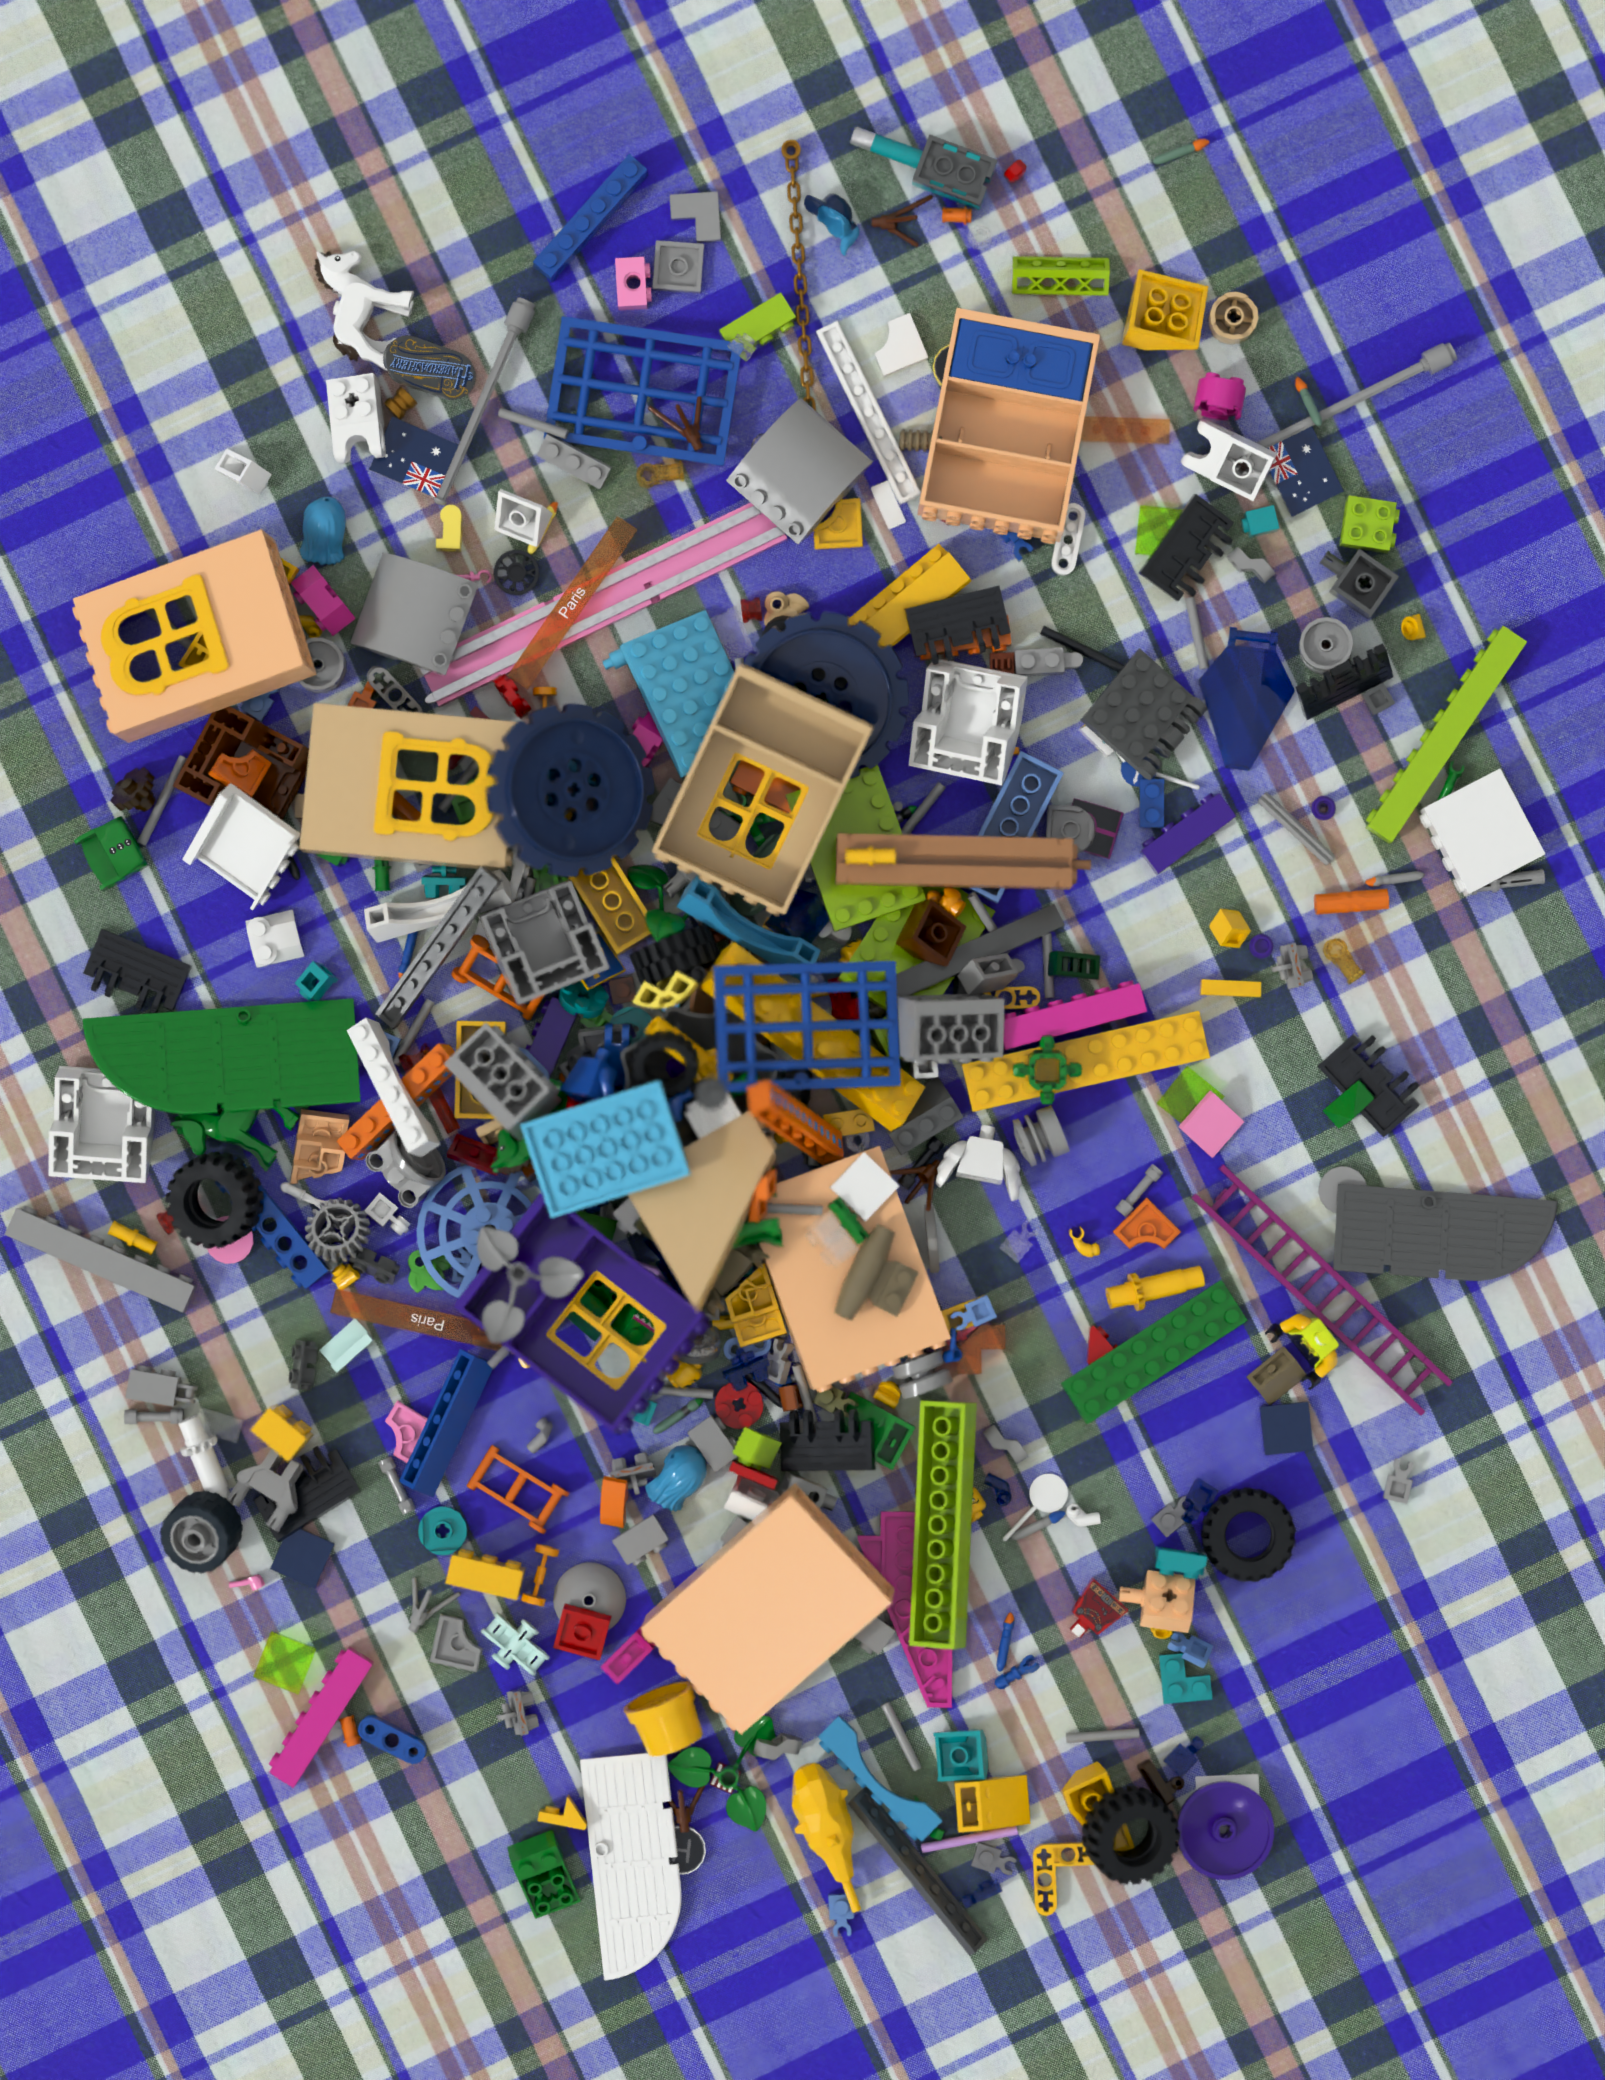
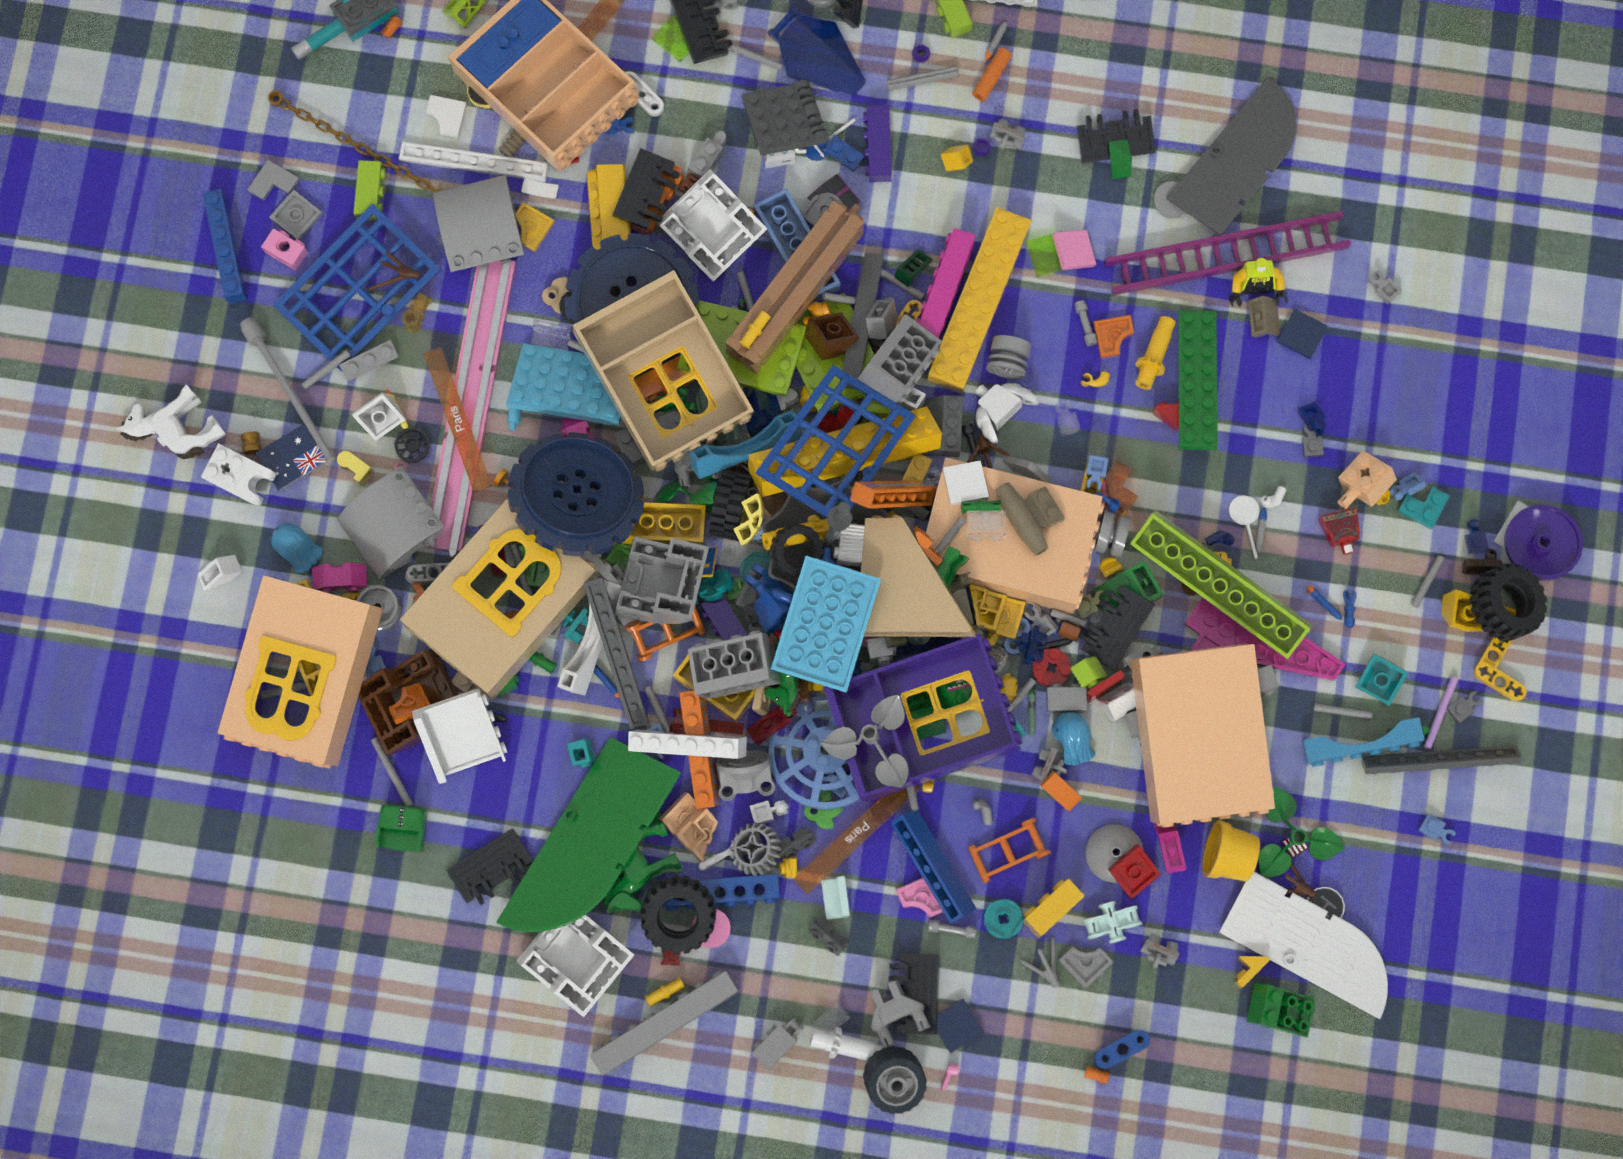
camera: 55 degrees left, 10 degrees down
(133, 1416) = (784, 1075): light grey bar -> none
(134, 791) = (372, 784): dark brown plant -> none
(274, 938) = (534, 761): white slope -> none
(282, 1431) = (864, 976): yellow brick -> none
(285, 1662) = (1020, 1087): clear neon green plate -> none
(321, 1716) = (1074, 1087): dark pink brick -> none
(429, 367) = (242, 407): dark grey tile -> none
(508, 690) = (487, 498): red plate -> none
(540, 1575) = (1076, 873): light orange wheel -> none
(622, 990) = (728, 559): reddish brown plate -> none
(640, 1540) = (1098, 790): light grey brick -> none
(674, 1067) = (802, 550): dark purple plate -> none
(742, 346) = (374, 203): clear plate -> none
(751, 610) = (543, 313): clear red wheel -> none
(777, 1746) = (1297, 794): light grey piece -> none
(825, 1823) = (1370, 797): yellow piece -> none
(836, 216) = (336, 98): hair -> none
(890, 221) = (364, 69): reddish brown plant -> none
(979, 230) = (415, 18): clear plate -> none
(987, 1889) = (1483, 723): clear blue plate -> none
(992, 1803) = (1426, 681): yellow slope -> none
(998, 1442) = (1188, 517): light grey piece -> none
(1021, 1069) = (978, 310): green piece -> none
(1082, 649) = (730, 124): black bar -> none
(1182, 1561) = (1343, 456): teal slope -> none
(1230, 988) = (994, 183): yellow piece -> none
(1256, 1567) = (1367, 378): black tyre -> none
(1343, 961) = (1024, 103): clear yellow connector -> none

